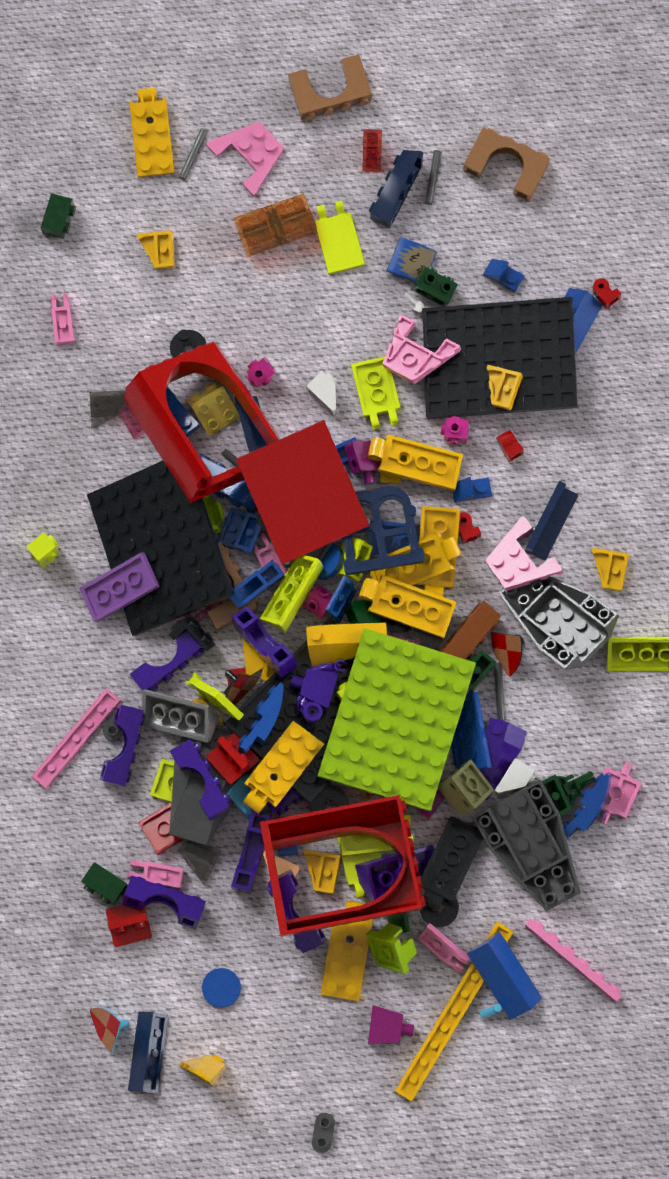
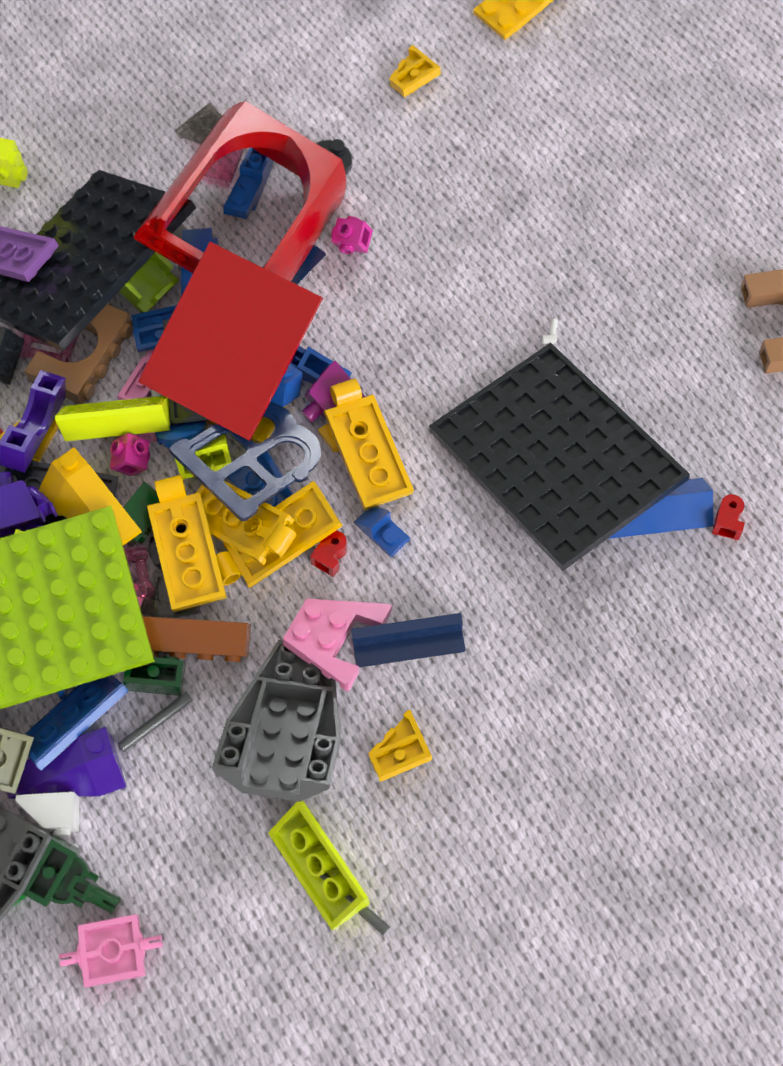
camera: 55 degrees right, 10 degrees down
(62, 322) = (270, 39): bright pink hinge -> none
(193, 153) = (538, 41): dark grey bar -> none
(213, 408) = (273, 218): light yellow bracket -> none
(256, 147) = (593, 88): bright pink wing -> none
(256, 584) = (100, 375): blue slope -> none
(275, 225) = (523, 150): clear orange brick -> none
(311, 104) = (730, 131): medium nougat arch -> none
(324, 391) = (379, 309): white slope -> none
(338, 240) = (560, 219): neon yellow tile -> none
(340, 600) = (140, 467): blue slope -> none
(372, 150) = (684, 184): clear red slope -> none
(376, 391) = (420, 360): neon yellow tile -> none
(397, 187) = (663, 233): dark blue wedge -> none
(410, 259) = (595, 300): slope -> none
(411, 359) = (481, 367): bright pink wing -> none
(433, 176) = (706, 262): dark grey bar -> none
(434, 286) = (585, 335): dark green brick -> none
(458, 436) = (436, 464): dark pink brick -> none
(500, 272) = (659, 401): blue slope -> none
(503, 386) = (522, 473): yellow wing -> none
(507, 651) = (210, 696): shield -> none
(510, 445) = (463, 535): red leg -> none
(593, 800) = (67, 929): blue slope -> none

